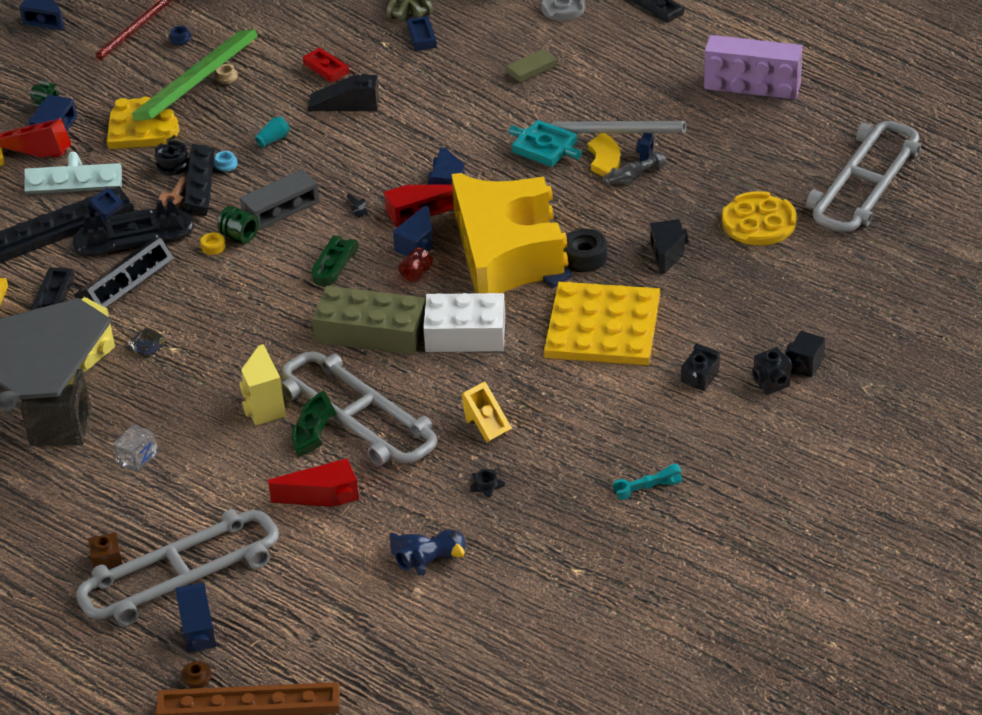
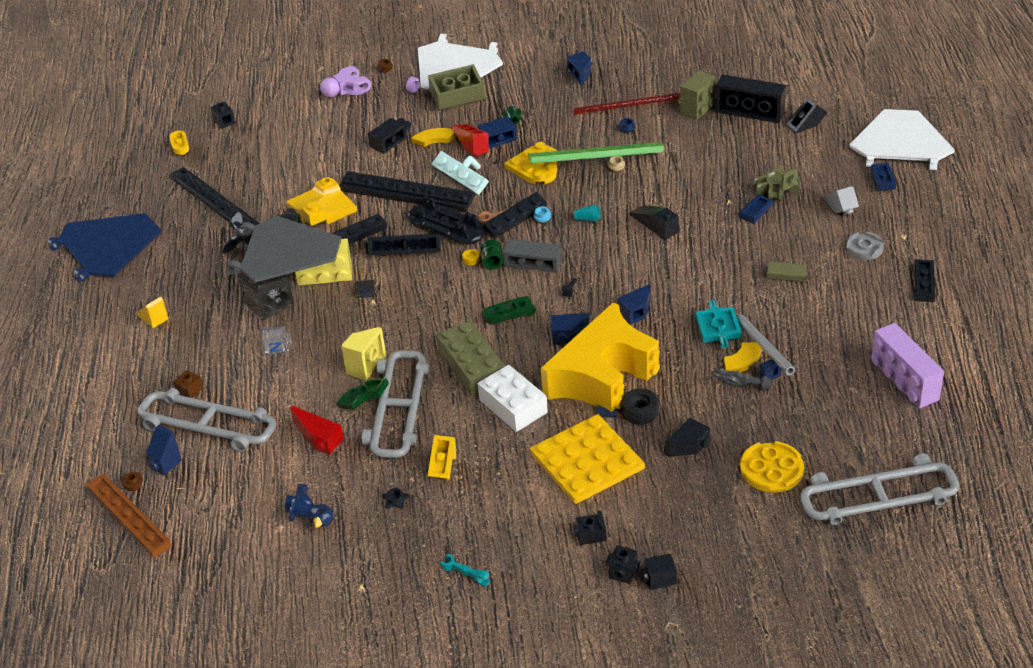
camera: 50 degrees right, 0 degrees up
(106, 203) = (450, 197): dark blue tile -> none
(171, 157) = (518, 192): black wheel -> none
(325, 65) = (673, 192): red plate -> none
(408, 199) = (590, 303): red slope -> none
(416, 263) = (540, 344): clear red wheel -> none

